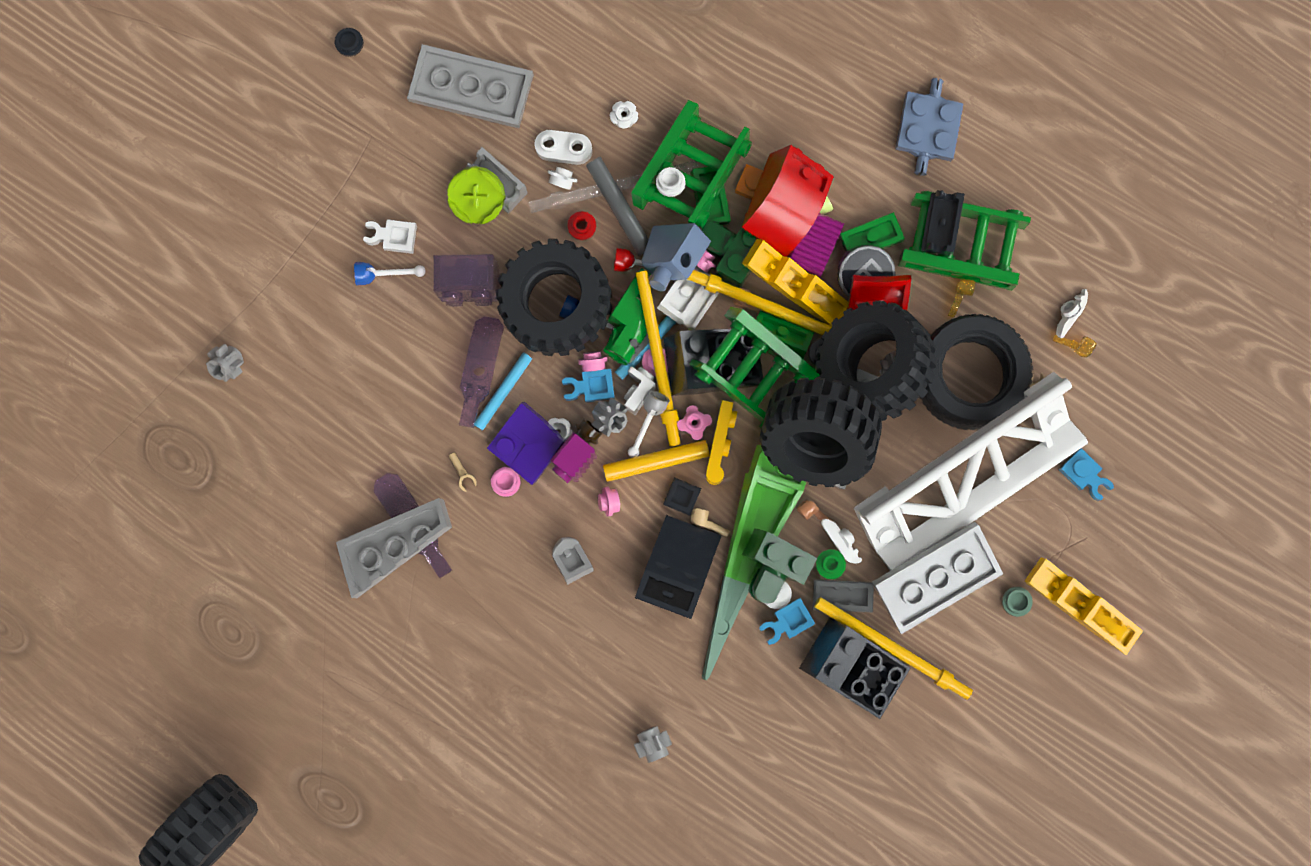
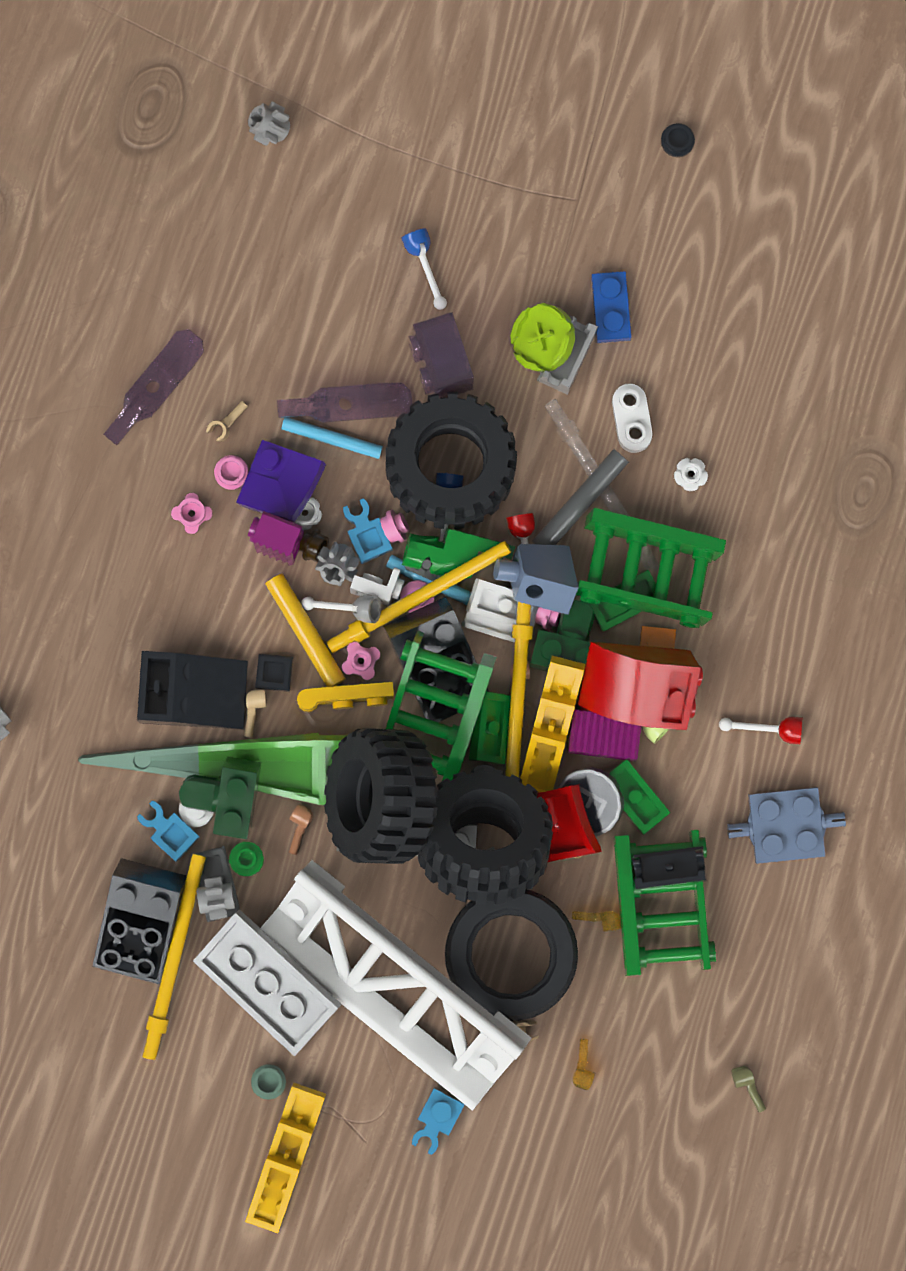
camera: 65 degrees right, 0 degrees up
(388, 545) = (120, 365): light grey wing -> none
(396, 237) = (470, 263): white plate -> none
(467, 135) = (611, 307): none -> blue plate
(470, 86) = (668, 292): light grey plate -> none
(521, 521) = (181, 513): none -> bright pink plate
(561, 178) = (594, 427): white plate -> none
(571, 559) = (165, 570): light grey plate -> none
(583, 234) = (542, 476): red plate -> none
(609, 501) = (243, 592): bright pink plate -> none
(670, 182) = (619, 548): white plate -> none
(843, 540) = (277, 865): white piece -> none
(853, 99) = (789, 728): none -> hinge
(858, 598) = (215, 898): none -> light grey gear
(1070, 312) = (618, 1049): white piece -> none
(1120, 221) = (742, 1077): none -> olive hand

